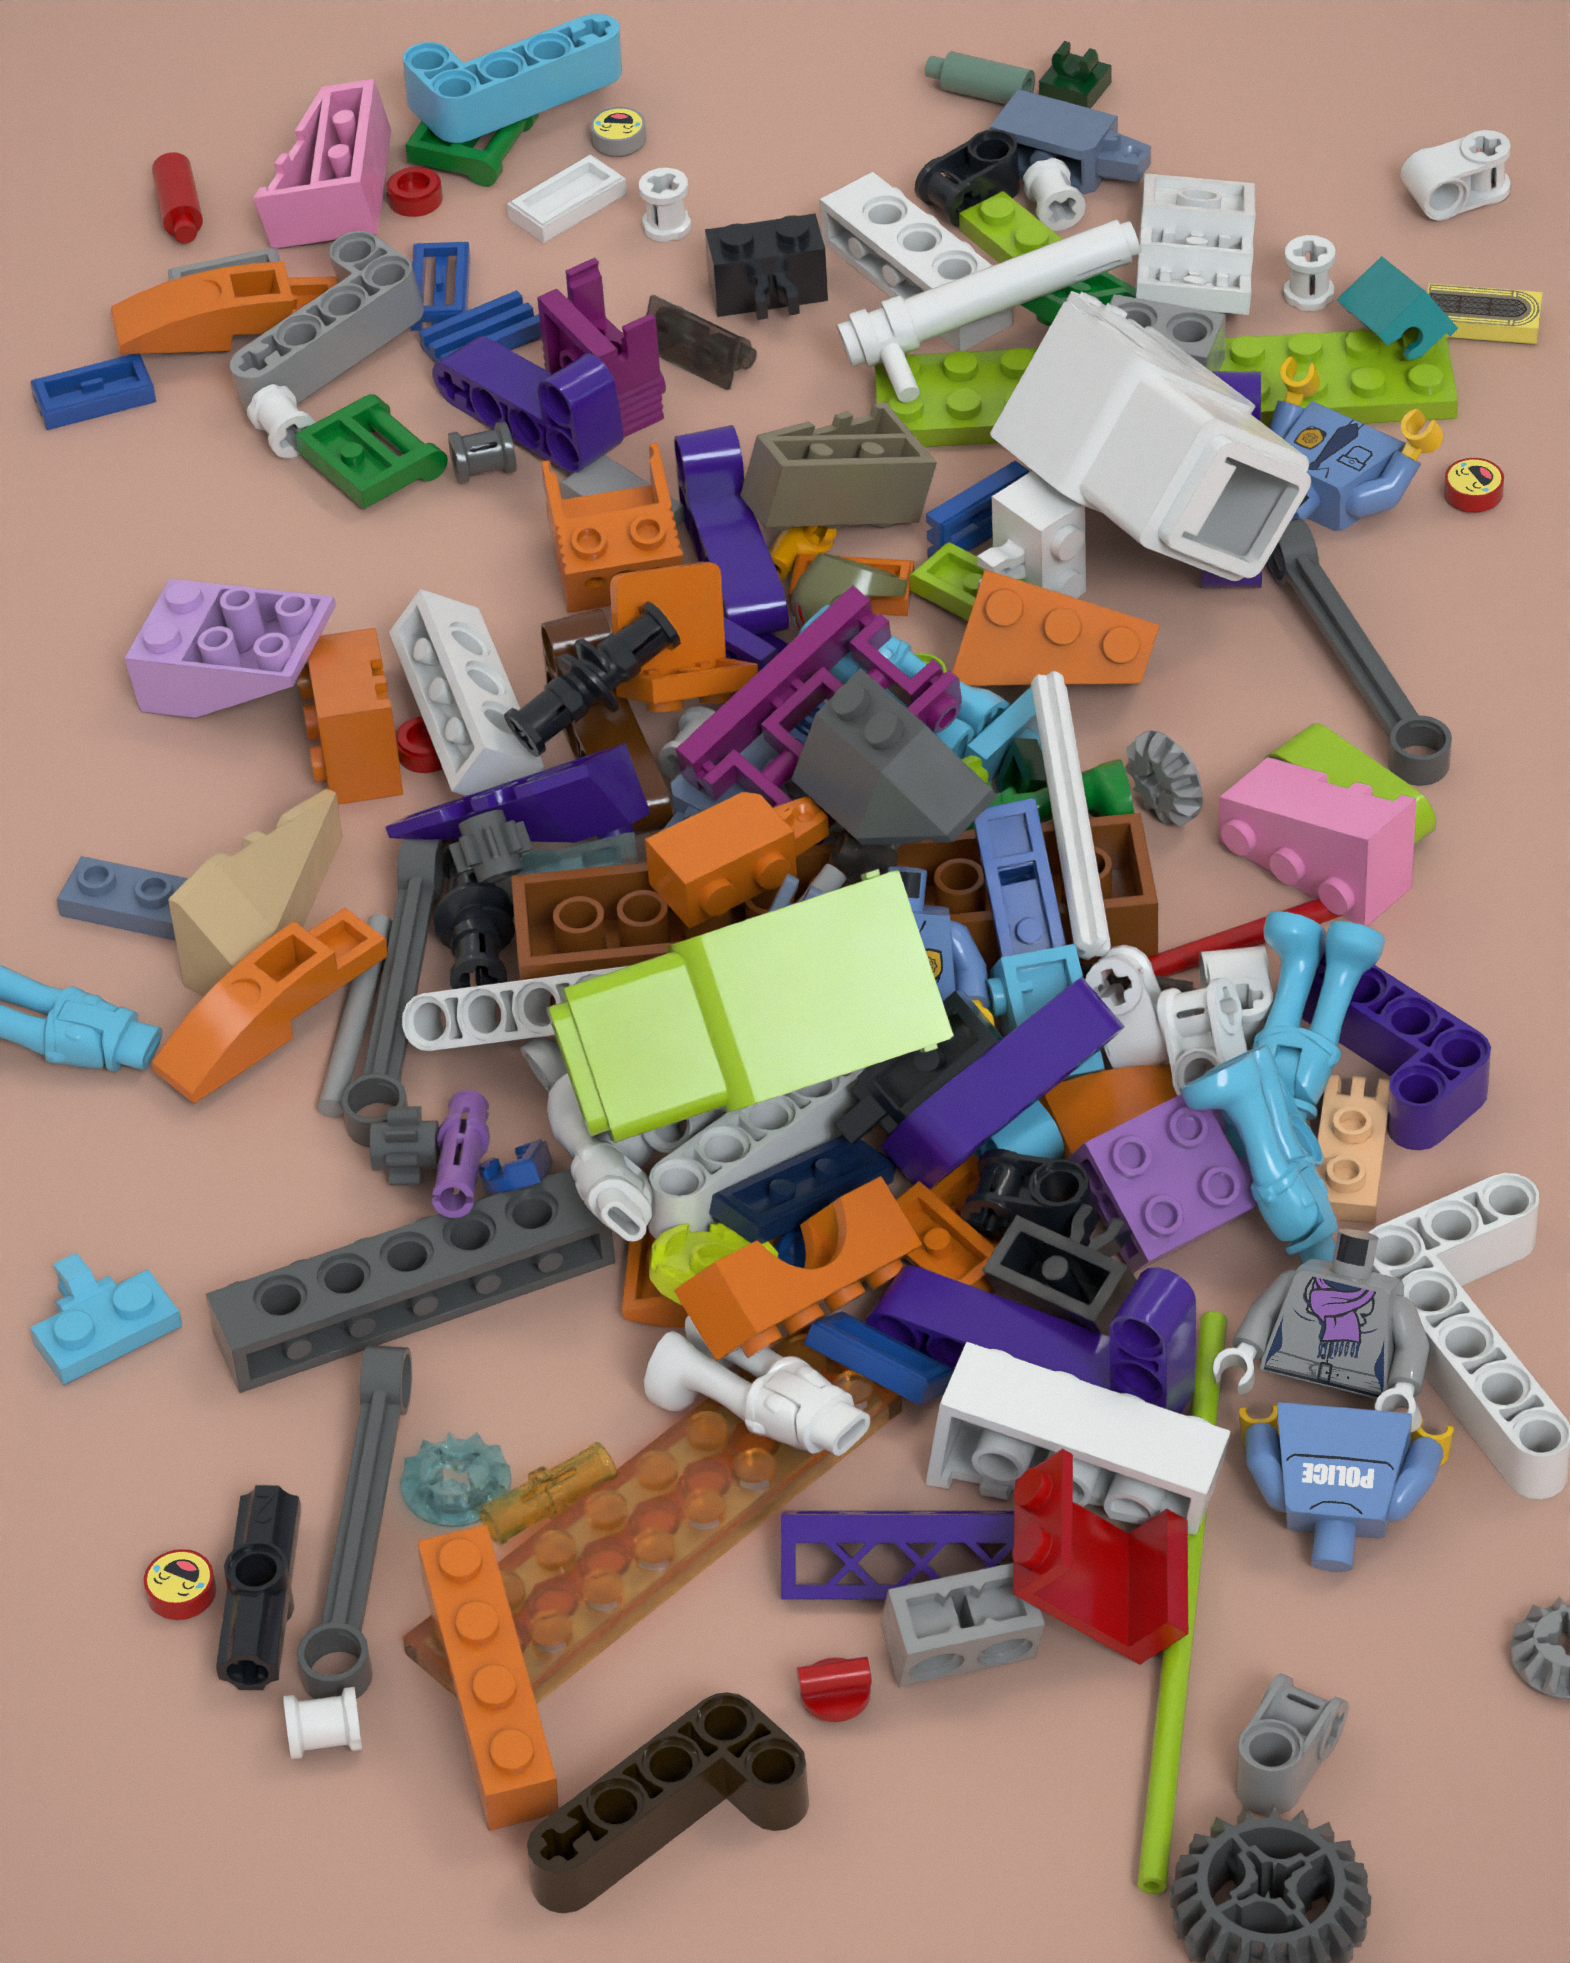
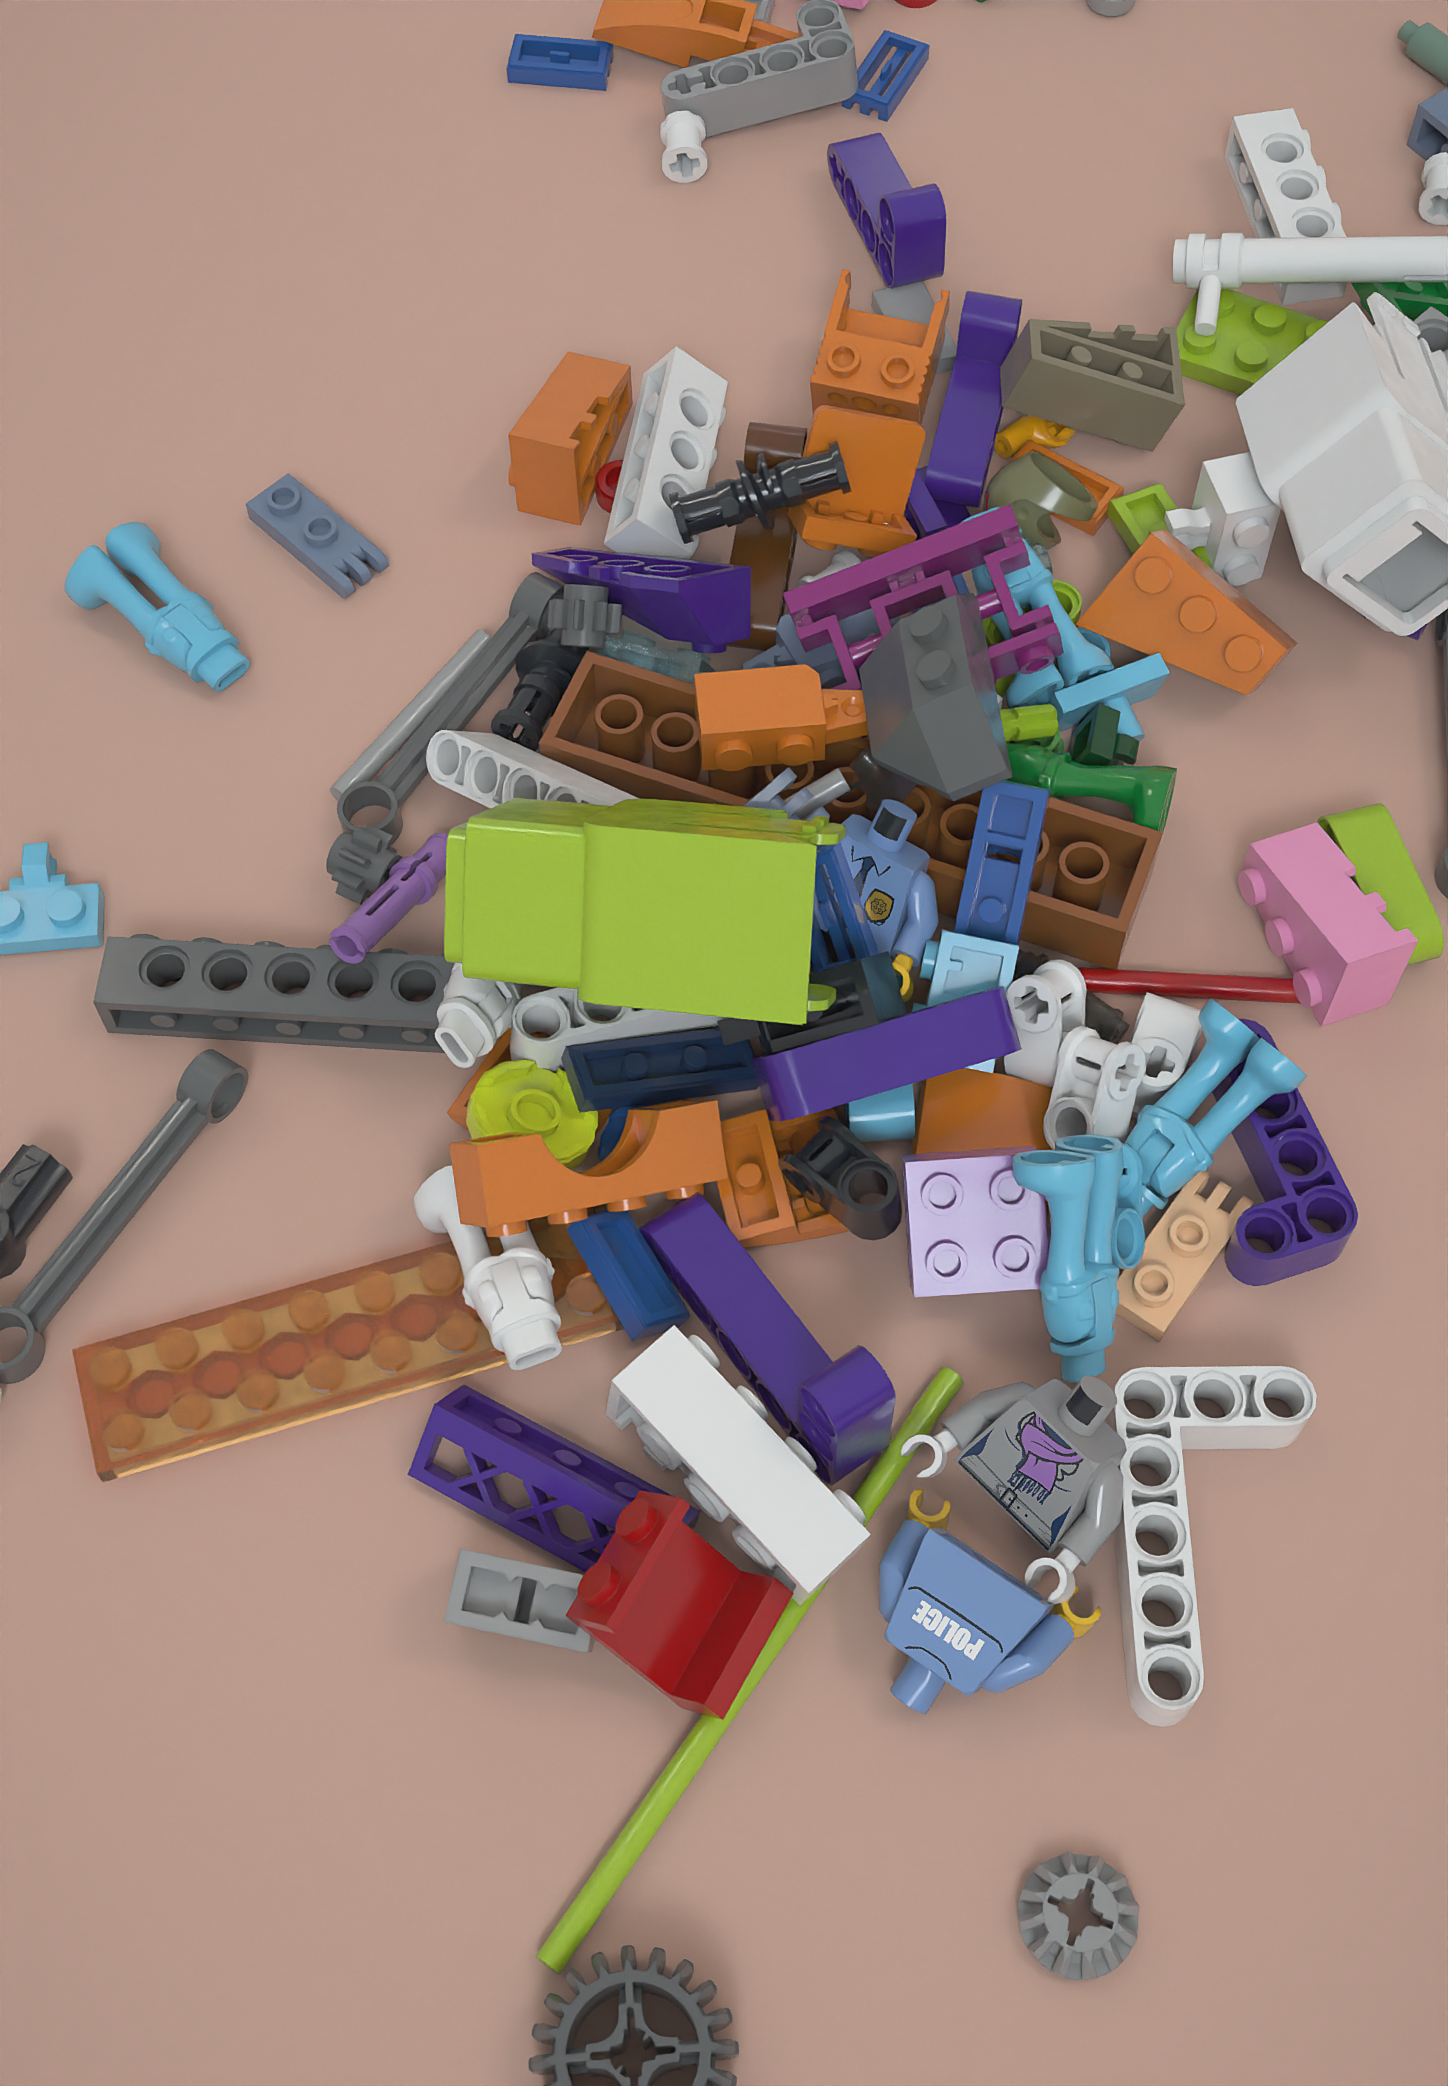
camera: 25 degrees right, 15 degrees up
(222, 645) = (500, 328): lavender slope -> none
(256, 892) = (375, 585): tan wedge -> none
(256, 1000) = (345, 664): orange slope -> none
(360, 462) = (722, 205): green plate -> none
(449, 1501) = (239, 1222): clear light blue gear -> none
(482, 452) = (824, 238): dark grey bush -> none
(489, 1677) = (71, 1499): orange arch -> none
(501, 320) = (906, 128): blue tile -> none
(528, 1169) = (421, 937): blue tile -> none
(546, 1493) = (274, 1265): clear yellow pin -> none
(567, 198) = (1034, 36): white tile -> none
(580, 327) = (970, 189): magenta piece -> none
(582, 1854) = (163, 1650): dark brown beam -> none
(665, 204) = (1107, 61): white bush -> none
(699, 344) = (1059, 208): clear smoke hinge -> none
(766, 265) = (1156, 160): black brick -> none
(835, 1688) = (393, 1595): red plate -> none
(968, 516) = (1180, 465): blue tile -> none
(971, 172) = (1387, 148): black piece -> none
(1004, 228) = (1385, 204): lime hinge -> none
(1064, 1274) = (833, 1279): black brick -> none
(1070, 816) = (1092, 812): white axle -> none
(1165, 777) = (1215, 799): light grey gear -> none
(1285, 1745) = (765, 1873): light grey piece -> none

